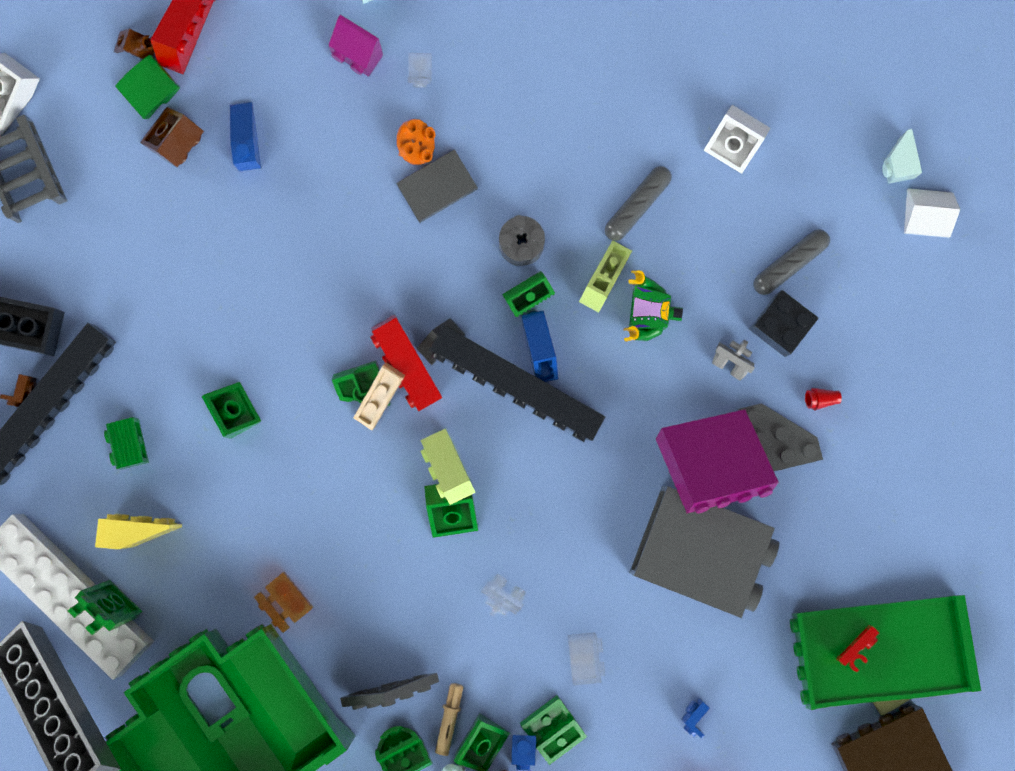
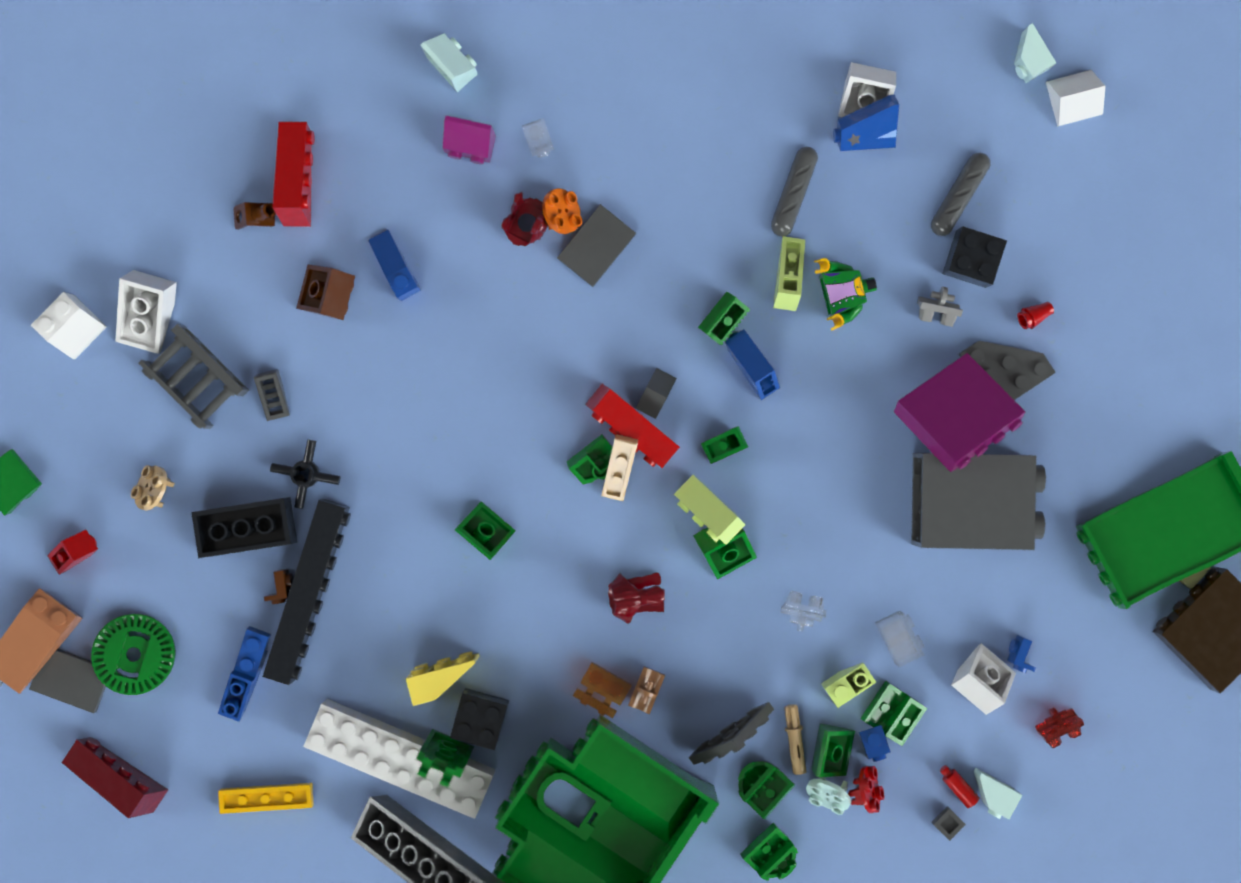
camera: 25 degrees left, 5 degrees up
(77, 212) = (259, 378): none -> dark grey slope
(93, 299) = (299, 480): none -> black bar
(126, 443) = (398, 598): green brick -> none
(147, 86) = (282, 252): green slope -> none
(156, 586) = (479, 719): none -> black brick
(324, 617) = (646, 690): none -> medium nougat hips
(349, 523) = (629, 597): none -> dark red piece
(364, 136) = (520, 207): none -> dark red piece
(485, 412) = (724, 445): none -> green slope
(516, 383) = (744, 407): black brick -> none
(519, 228) = (709, 262): flat silver brick -> none
(519, 683) = (848, 684): none -> yellowish green slope
(651, 729) = (984, 679): none -> white slope
(727, 168) = (869, 127): none -> blue slope
(850, 654) = (1153, 526): red plate -> none

